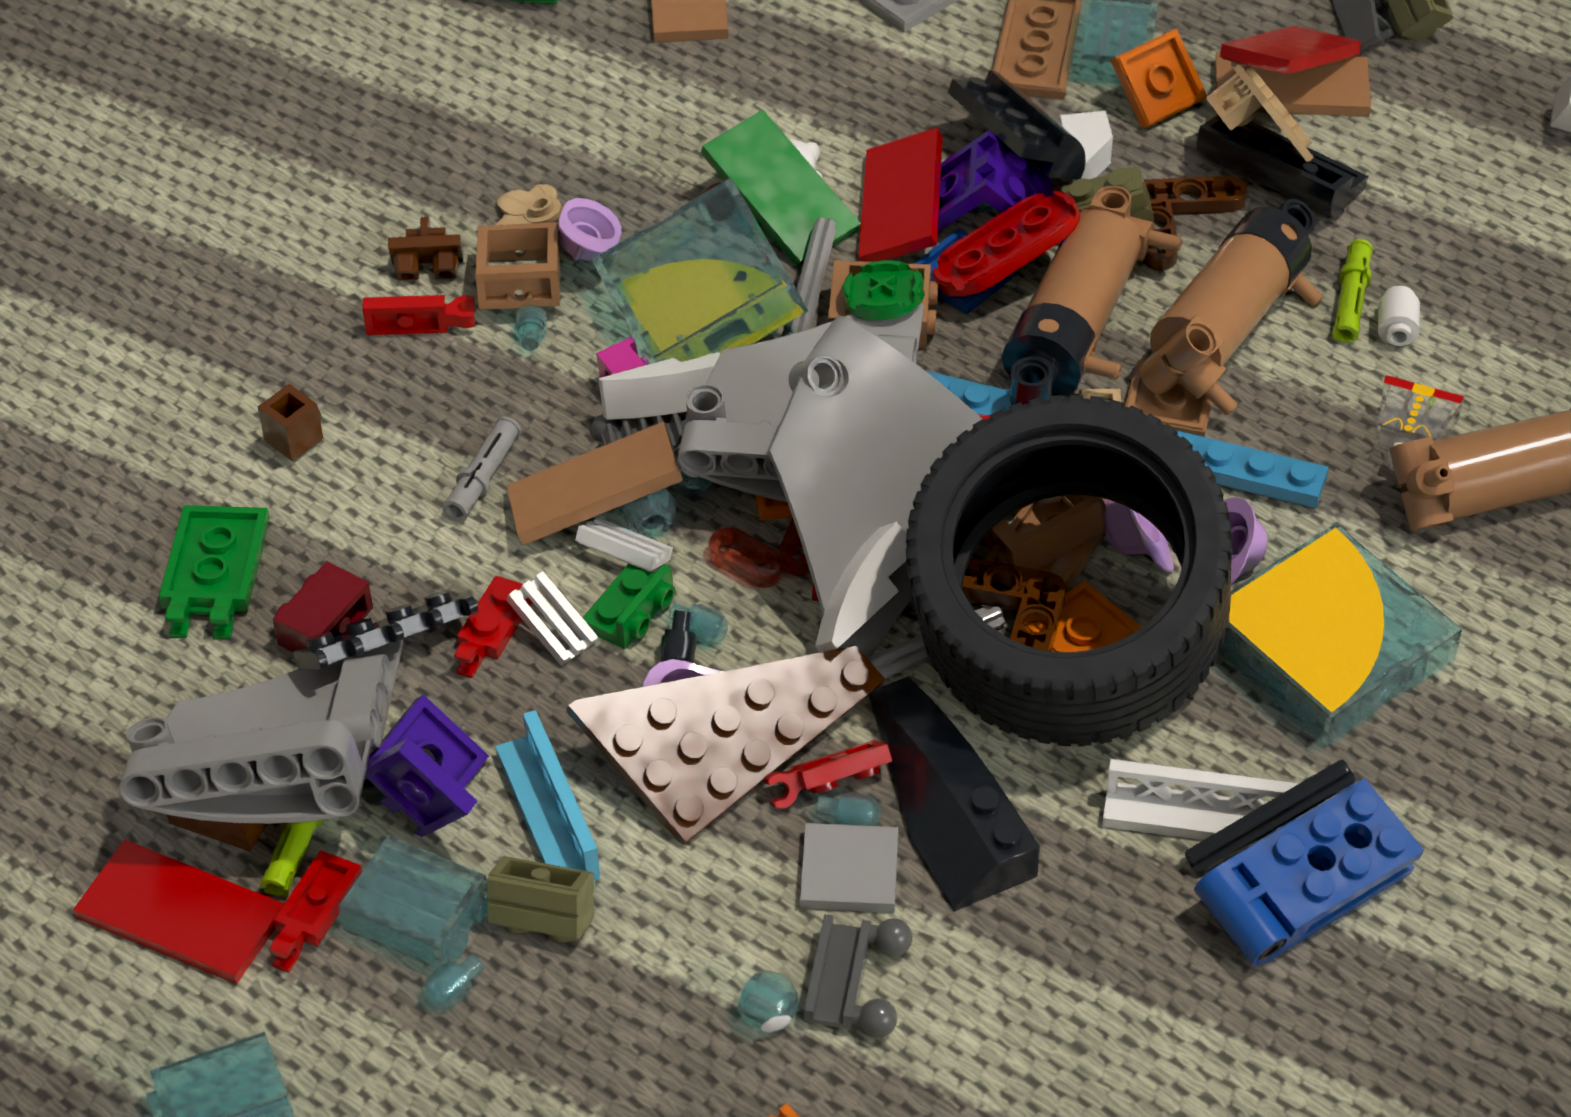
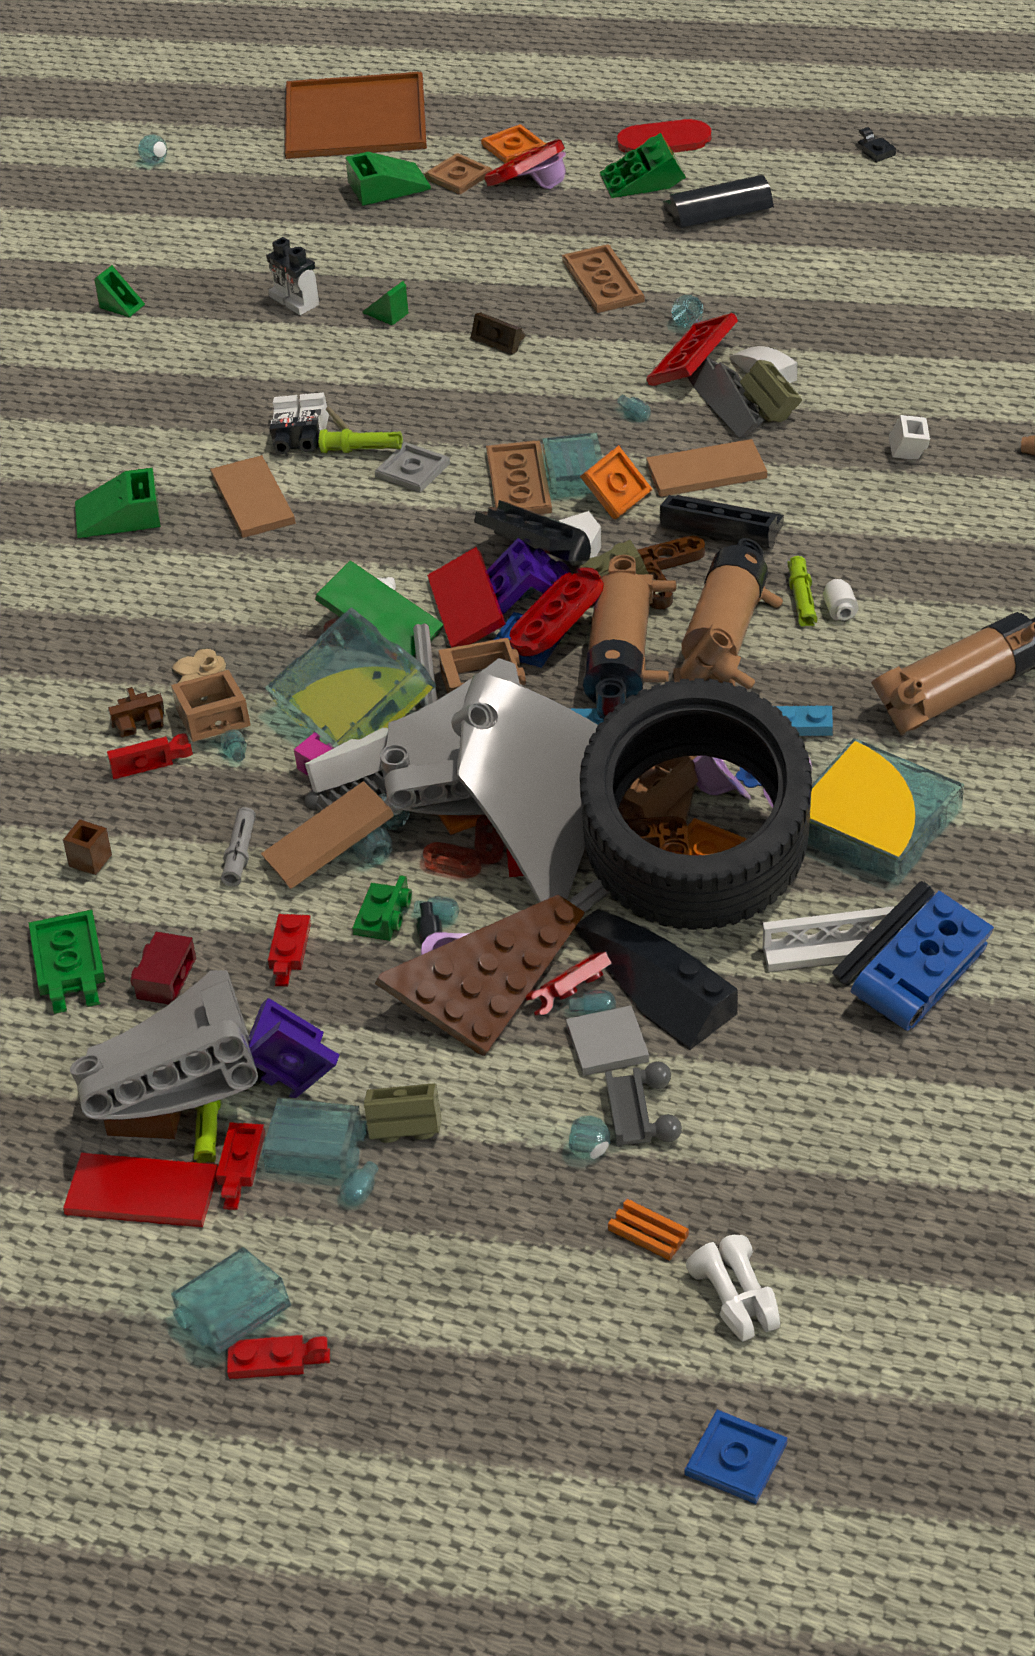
camera: 15 degrees left, 5 degrees down
(366, 635) = (225, 960): black hinge -> none
(547, 799) = (378, 1046): medium azure fence -> none
(563, 607) = (335, 928): white tile -> none
(587, 229) = (251, 670): lavender piece -> none
(623, 544) = (362, 871): white tile -> none
(863, 586) = (551, 851): white slope -> none
(883, 290) = (483, 657): green tile -> none
(1247, 92) = (686, 479): tan bracket -> none
(1290, 49) = (701, 443): red tile -> none
(1413, 413) = (873, 657): clear torso -> none

